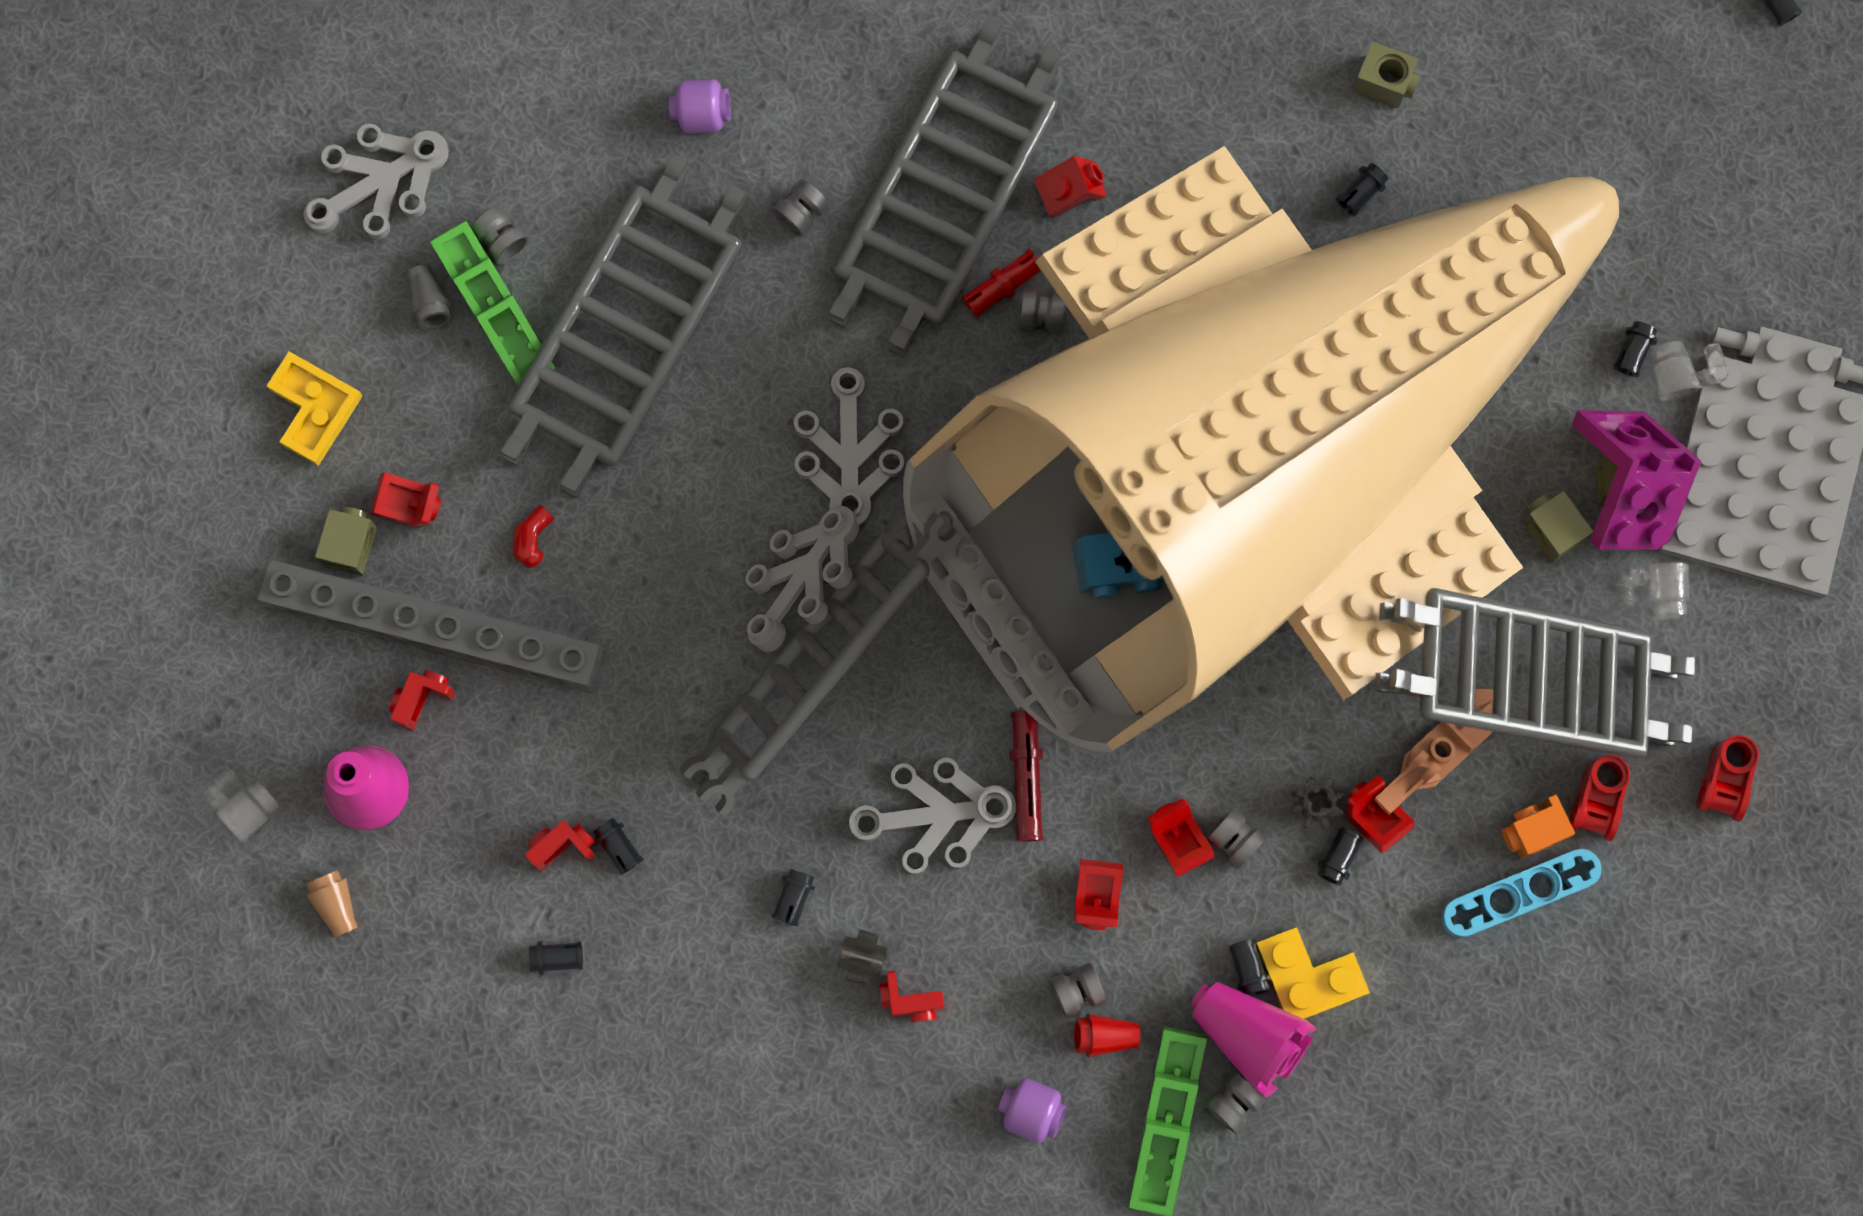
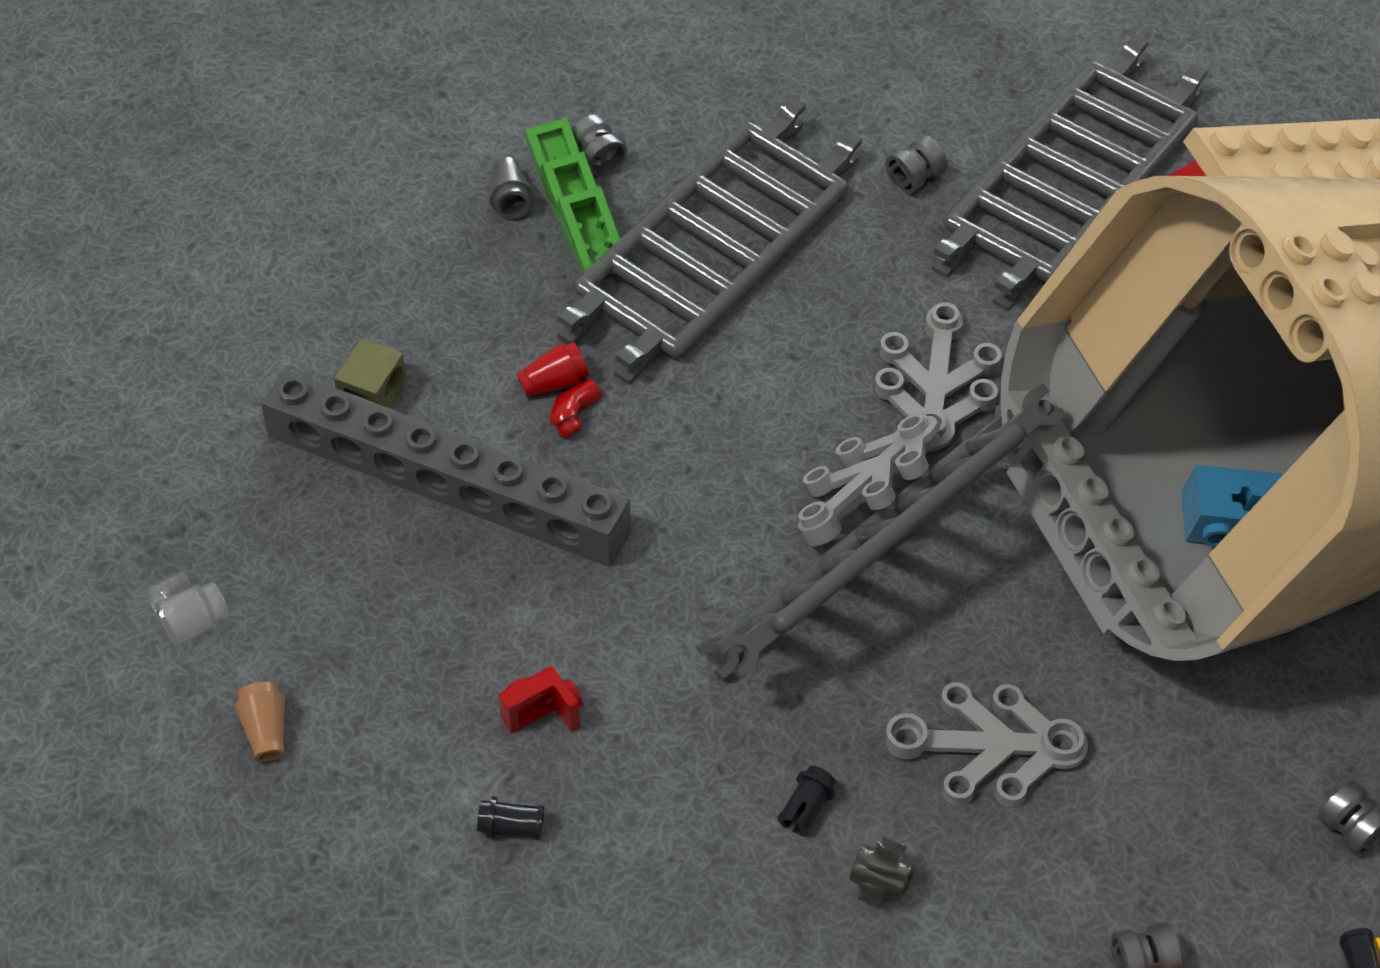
camera: 10 degrees right, 25 degrees down
(323, 402) = (374, 259): yellow plate -> none
(365, 787) = (328, 601): dark pink cone -> none
(381, 178) = (530, 76): light grey plant -> none
(405, 501) = (443, 353): red bracket -> none
(409, 701) = (409, 528): red bracket -> none
(508, 501) = (553, 371): none -> red cone
(617, 846) = (602, 704): black pin -> none
(700, 106) = (825, 69): medium lavender head -> none
(919, 1007) = (942, 937): red bracket -> none
(1027, 770) = (1105, 698): dark red pin -> none
(1098, 894) = (1181, 849): red bracket -> none
(1179, 837) = (1283, 804): red bracket -> none

